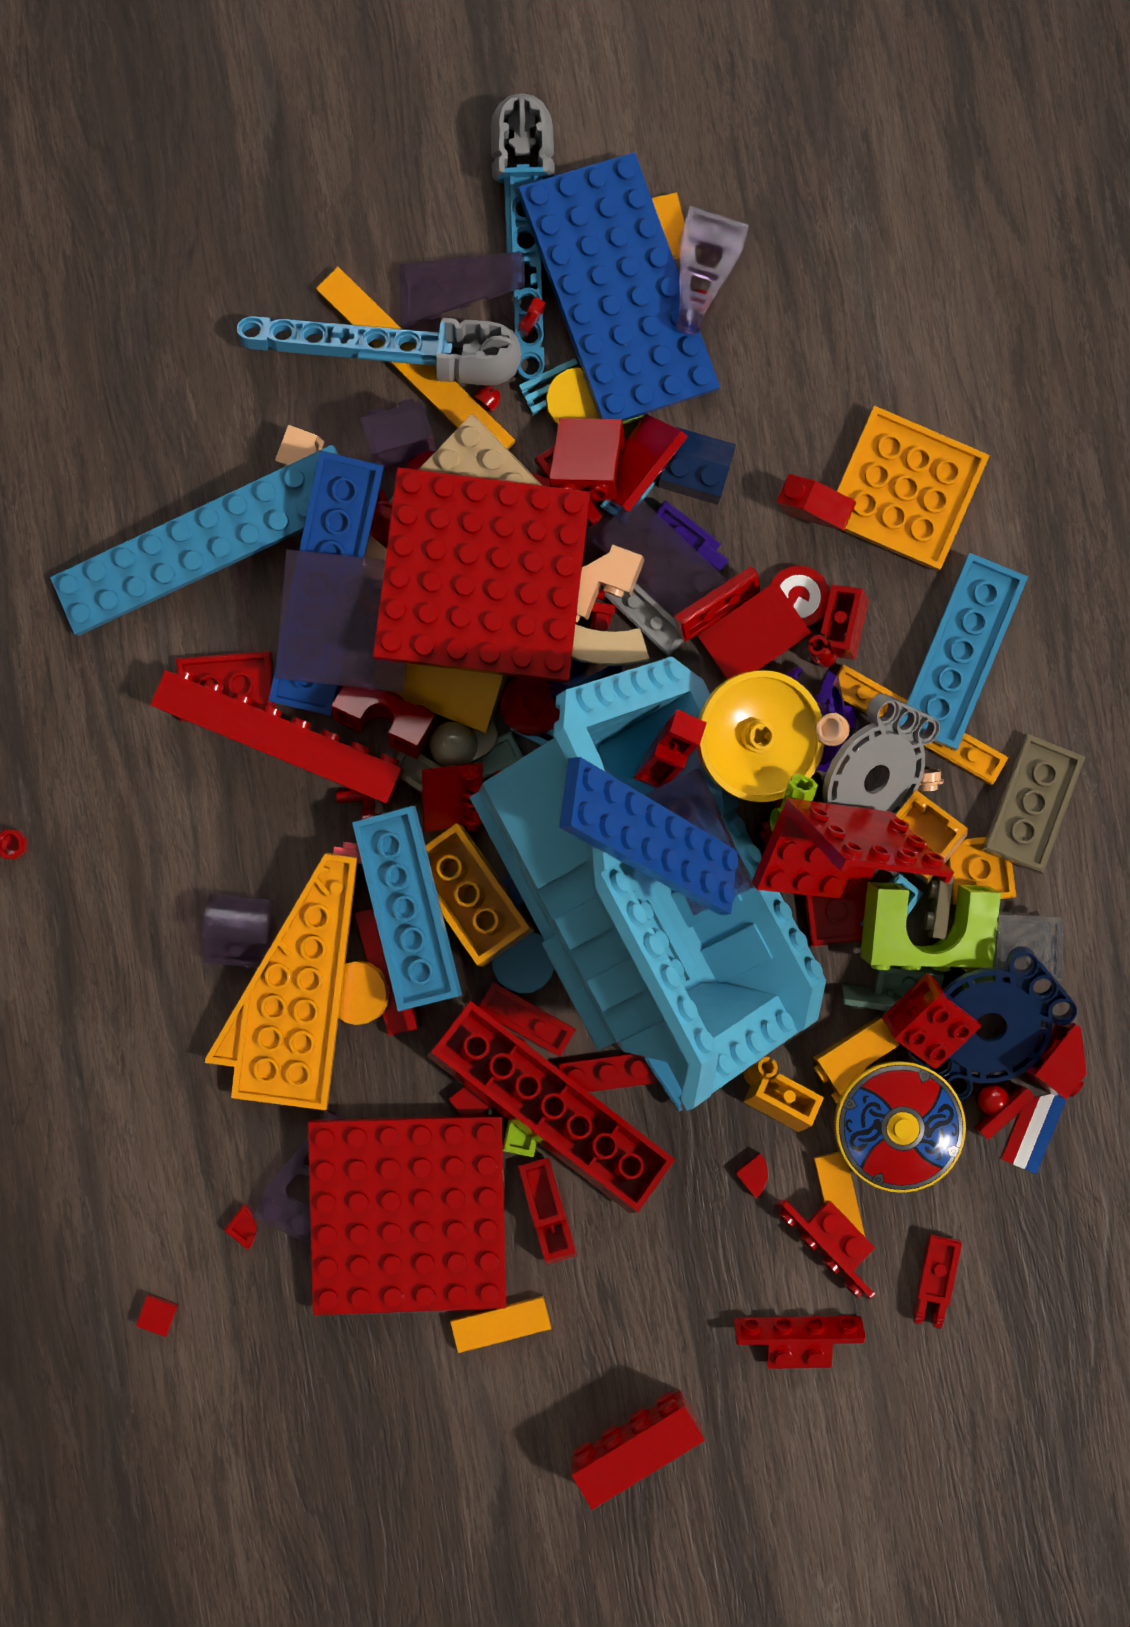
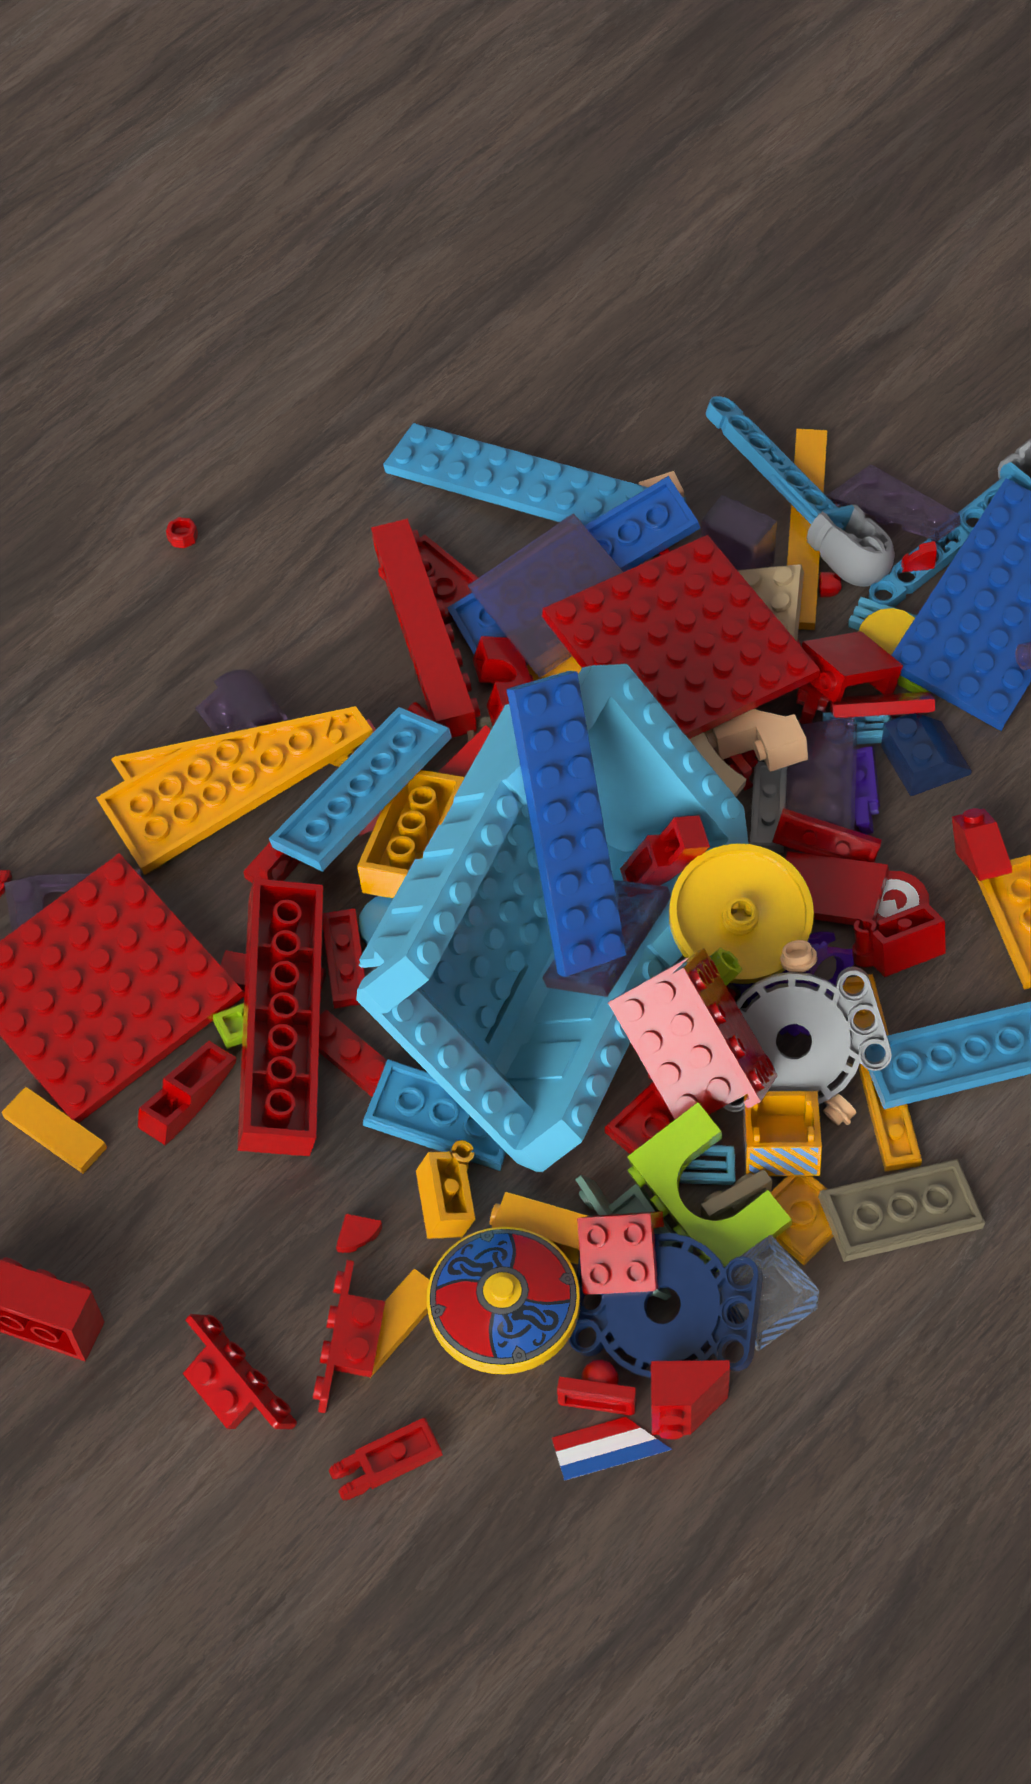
camera: 55 degrees right, 30 degrees down
(363, 993) = (257, 826): light orange tile -> none

